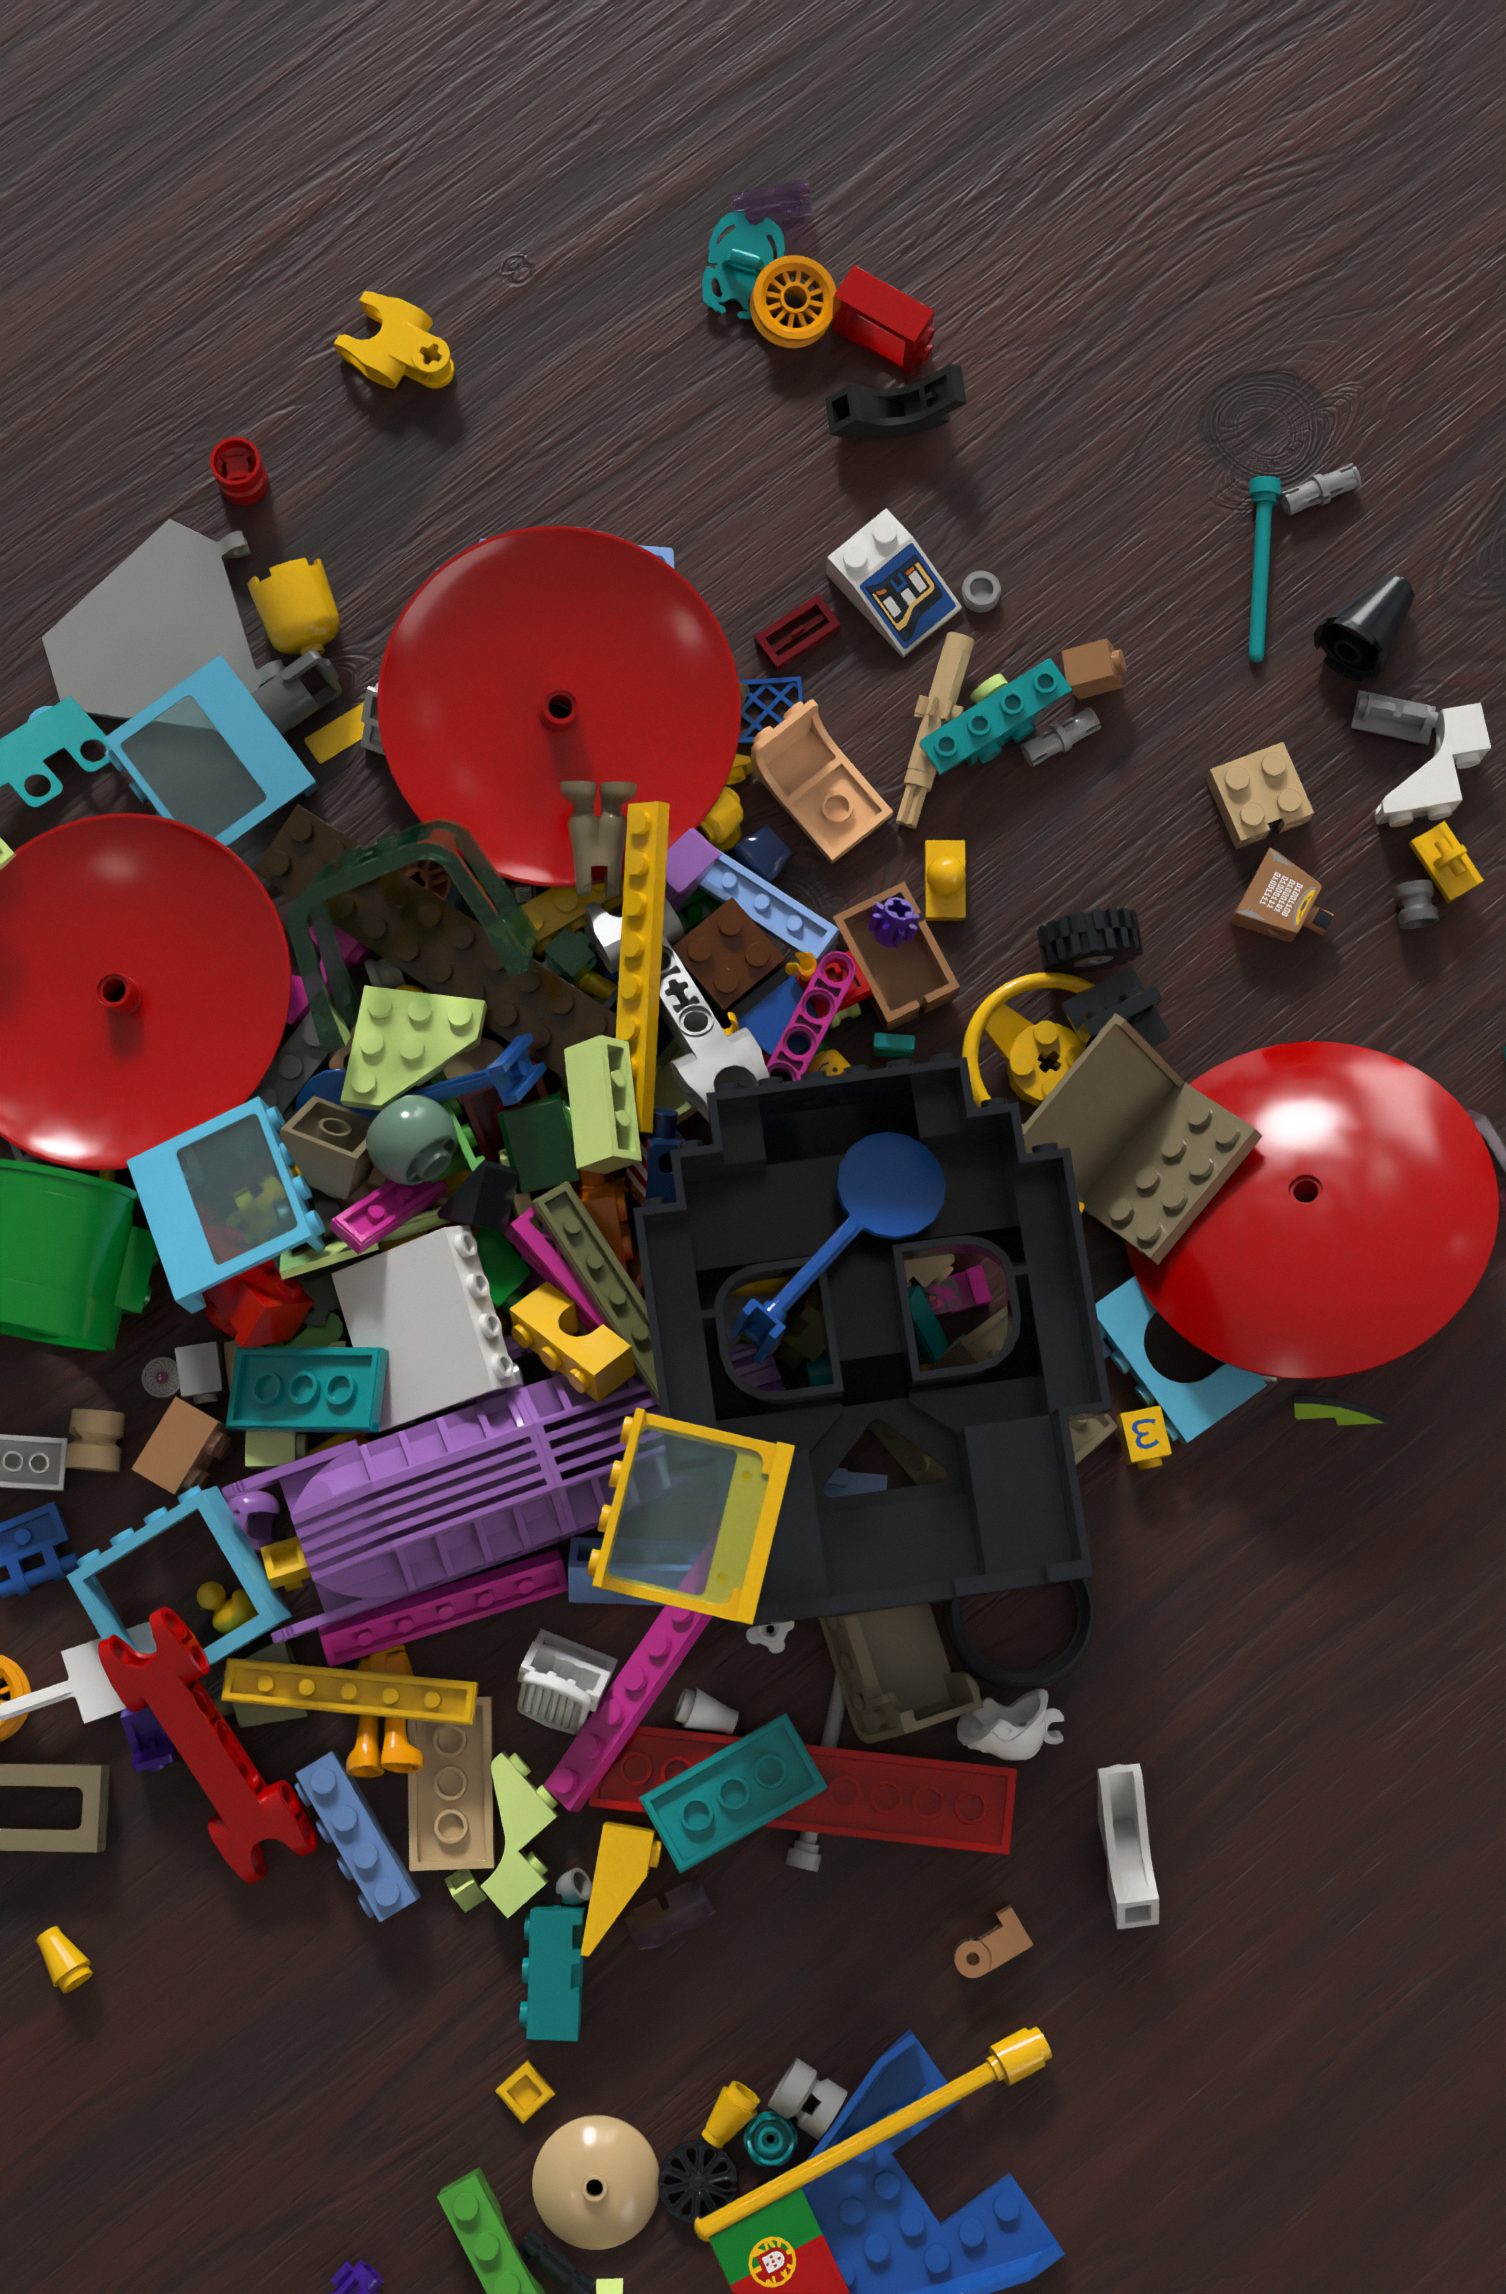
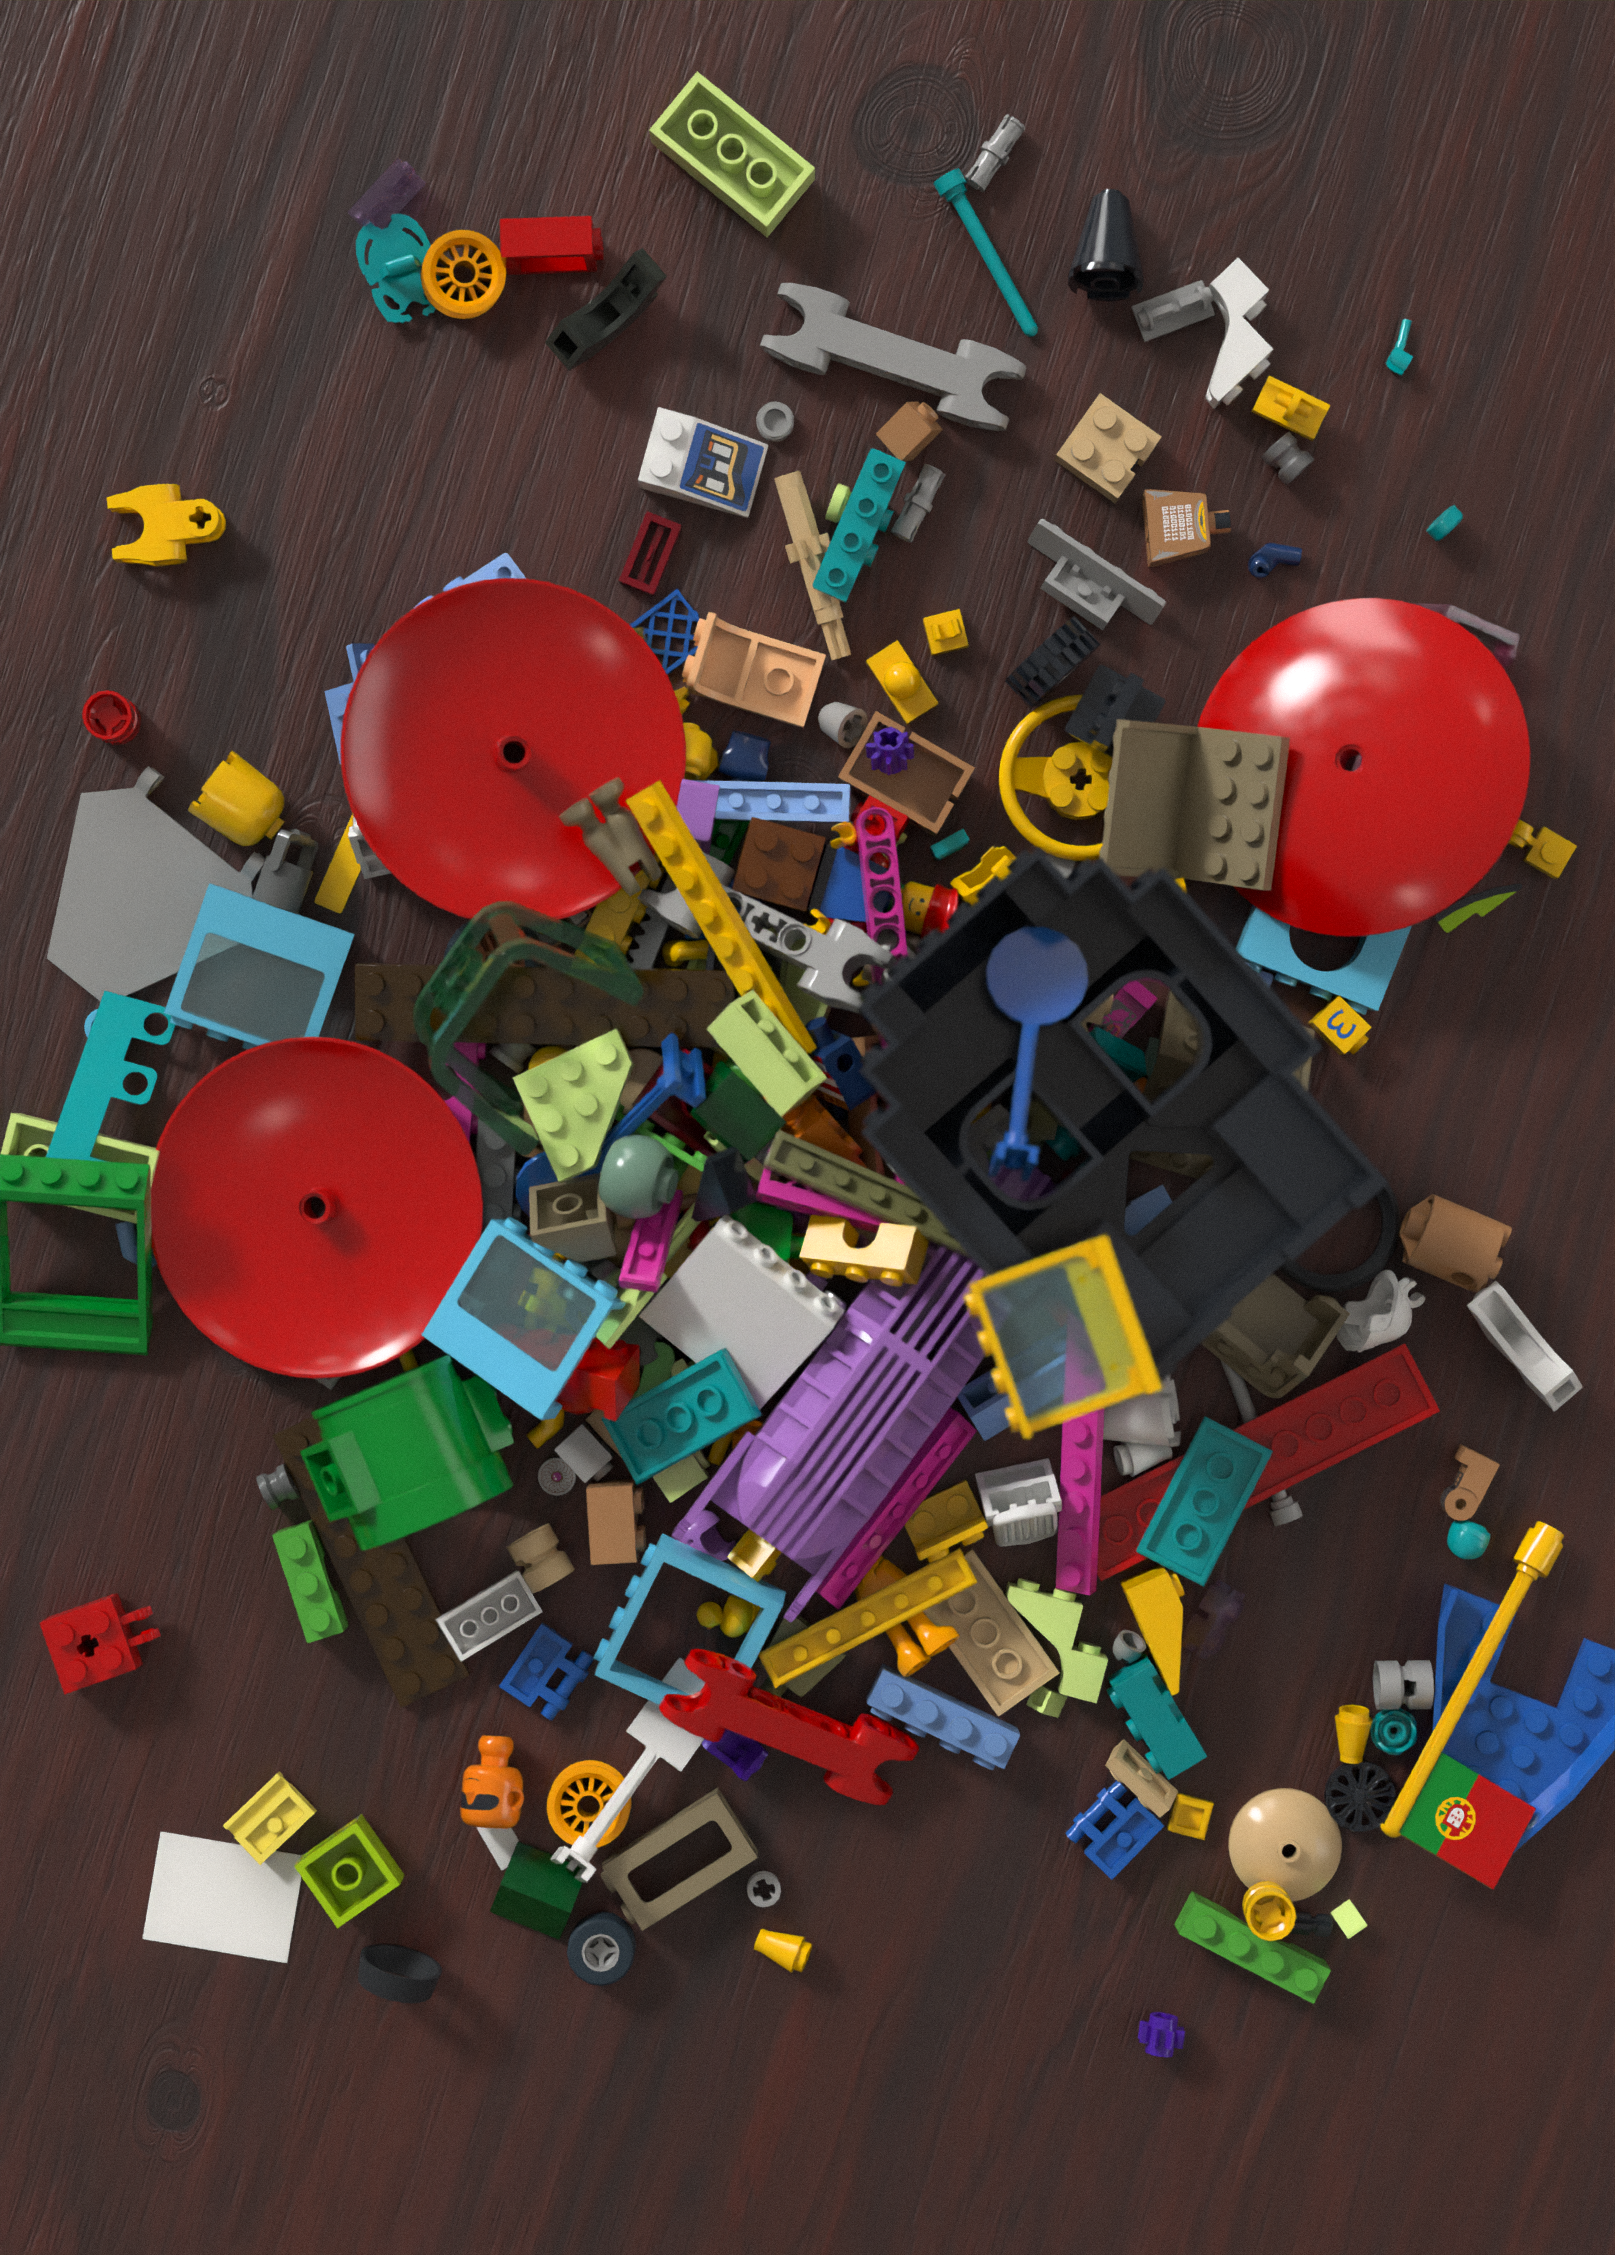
camera: 30 degrees left, 10 degrees up
(72, 1895) = (757, 1898): none -> light grey bush
(187, 1328) = (546, 1430): none -> yellow arm
(447, 2068) = (1122, 1837): none -> blue plate
(484, 1650) = (944, 1521): none -> yellow bracket
(501, 2017) = (1138, 1775): none -> tan plate
(536, 2233) = (1268, 1911): none -> yellow wheel
(571, 955) = (654, 943): clear green plate -> none
(731, 1671) = (1145, 1418): none -> white cone
(868, 877) = (843, 723): none -> light grey hat
(958, 1998) = (1467, 1539): none -> teal piece
(1012, 862) = (945, 632): none -> yellow tile
(1091, 346) = (732, 154): none -> yellowish green brick
(1122, 1703) = (1453, 1242): none -> medium nougat cylinder
(1160, 649) = (834, 337): none -> light grey piece
(1169, 898) = (1089, 582): none -> light grey bracket
(1345, 981) = (1270, 556): none -> dark blue arm
(1435, 1404) = (1547, 851): none -> yellow plate

